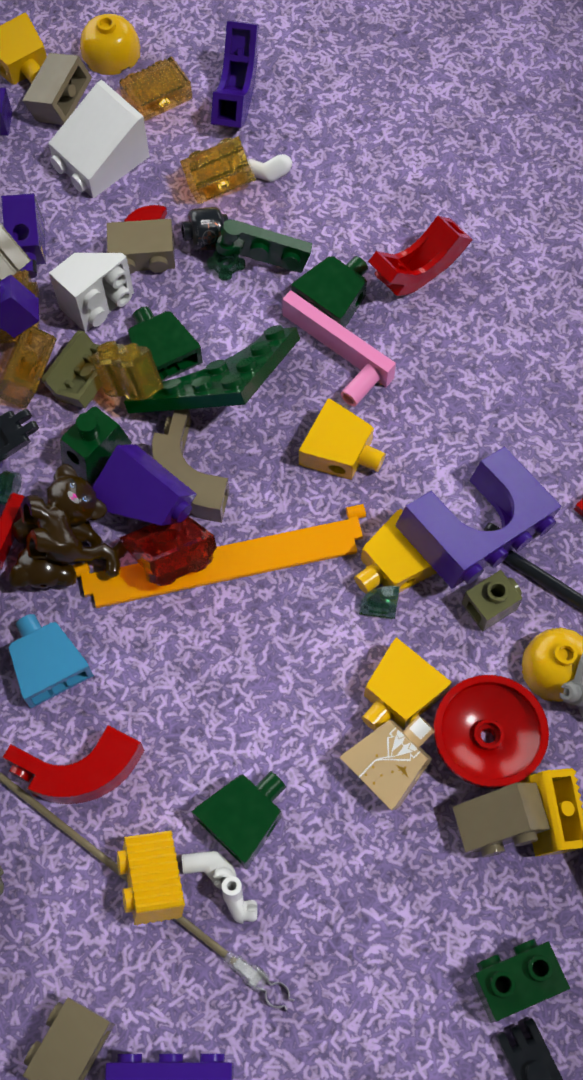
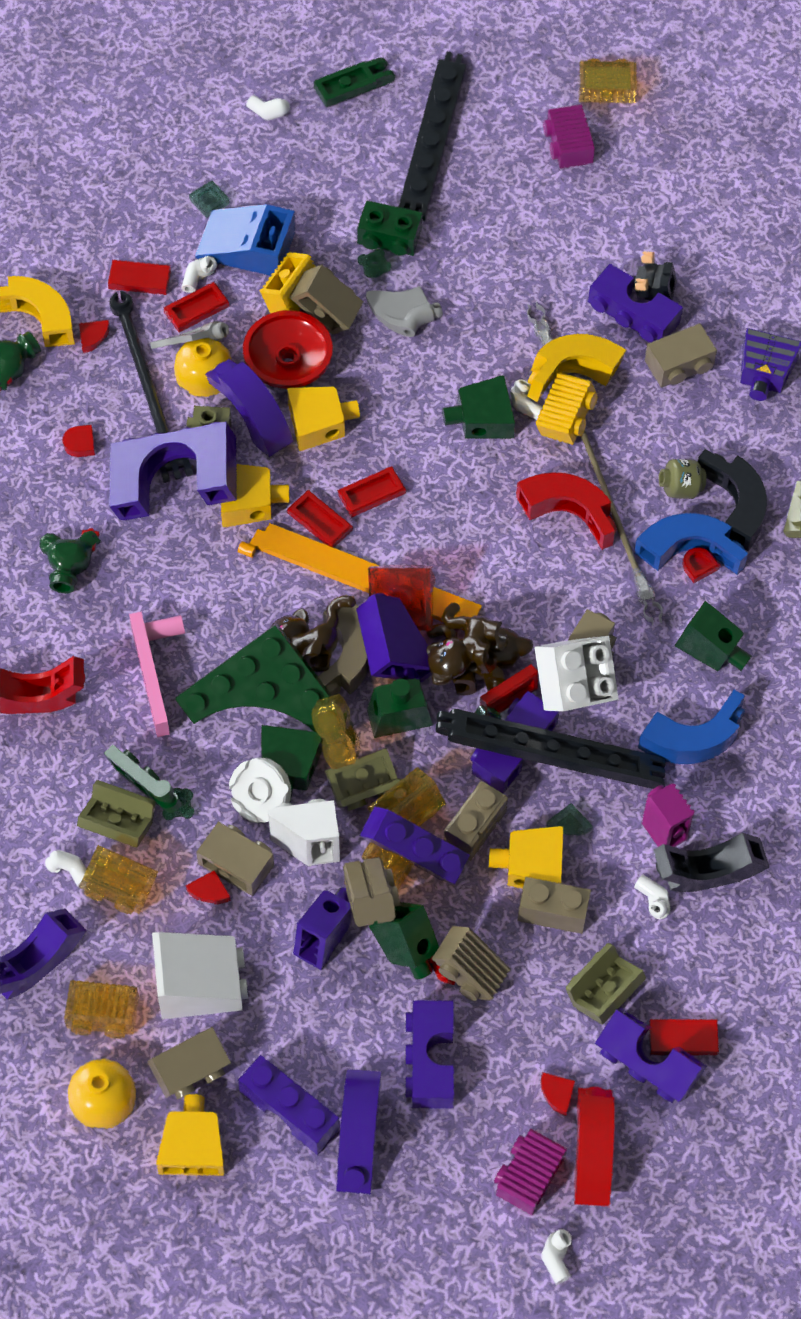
camera: 145 degrees left, 5 degrees down
(45, 661) = (543, 583): dark azure torso -> none
(161, 300) = (258, 786): none -> white tile
(185, 962) = (574, 354): none -> yellow arch
(203, 227) = (171, 836): black head -> none
(233, 897) = (522, 368): white arm -> none
(242, 443) = (320, 642): none -> dark brown animal
(267, 211) = (117, 814): none -> olive bracket
(288, 651) = (371, 491): none -> red tile
(314, 587) = (319, 519): none -> red tile
(334, 287) = (118, 714): dark green torso -> none
(339, 443) = (219, 596): yellow torso -> none
(380, 602) = (285, 475): tile -> none
(391, 759) = (364, 376): tan torso -> none
(423, 889) = (403, 310): none -> light grey arm
(475, 632) = (254, 403): none -> dark purple arch
(500, 390) = (68, 558): none -> dark green animal
(510, 921) = (374, 270): none -> clear green plate

